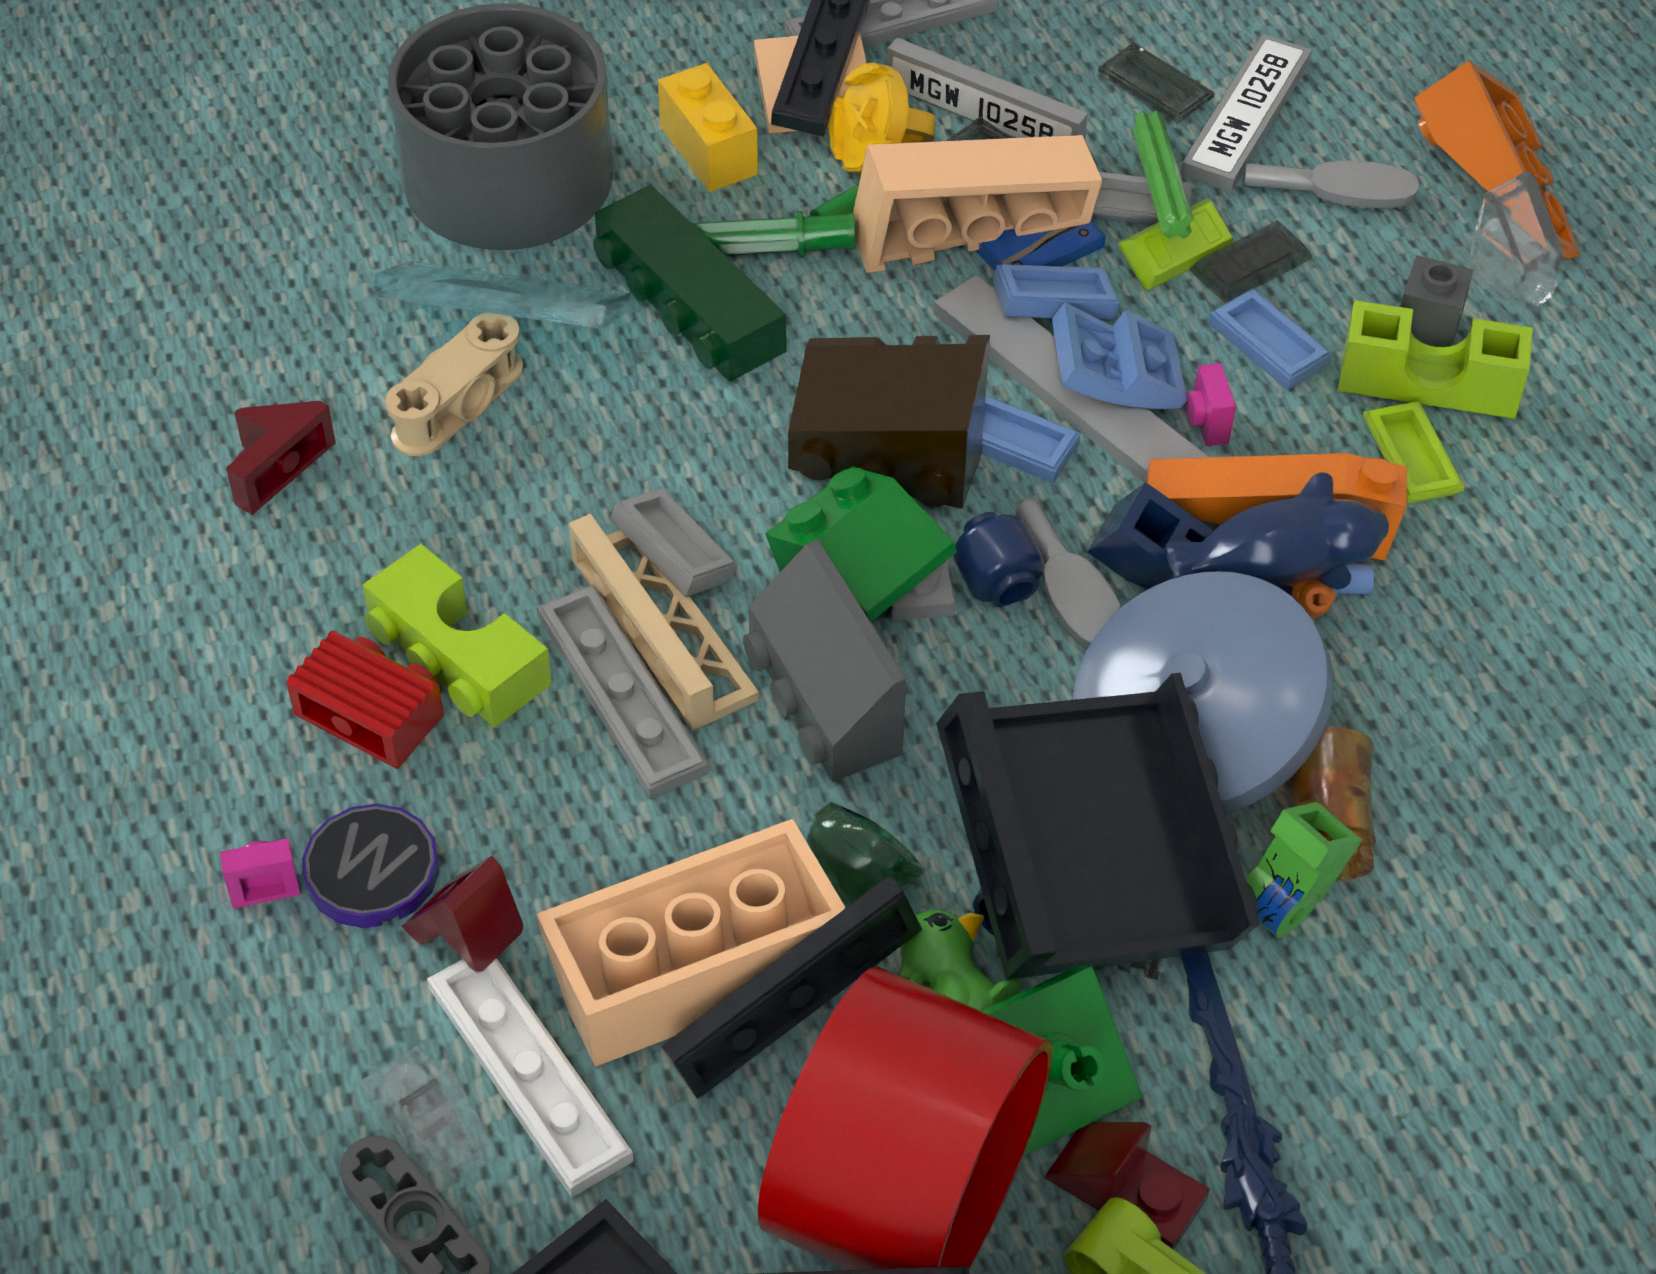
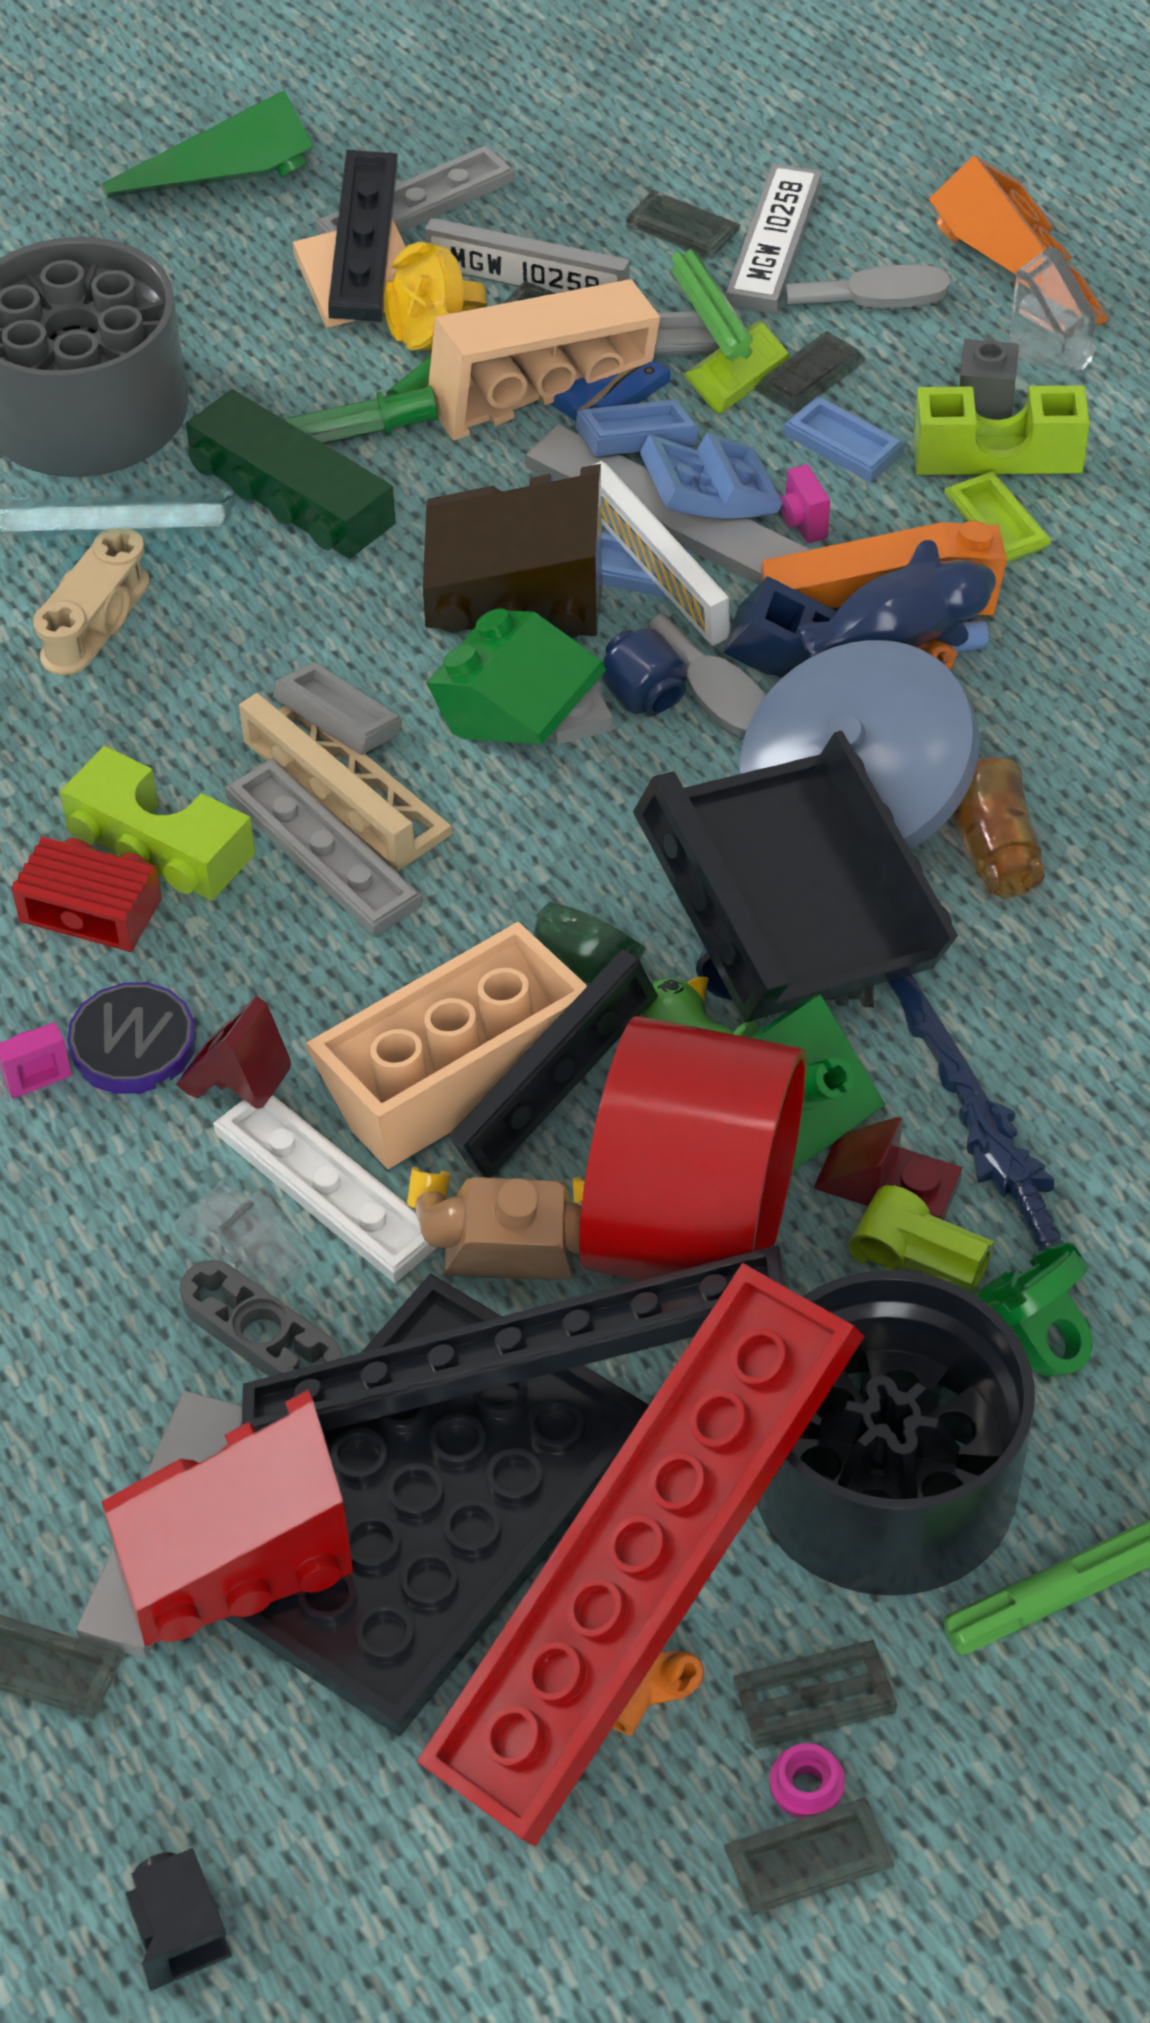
camera: 10 degrees left, 0 degrees up
(683, 1159) = (500, 1225): none -> medium nougat torso
(708, 127) = (270, 329): yellow brick -> none
(827, 666) = (513, 787): dark grey slope -> none
(1043, 435) = (663, 558): none -> white tile
(1299, 866) = (981, 882): bright green leg -> none

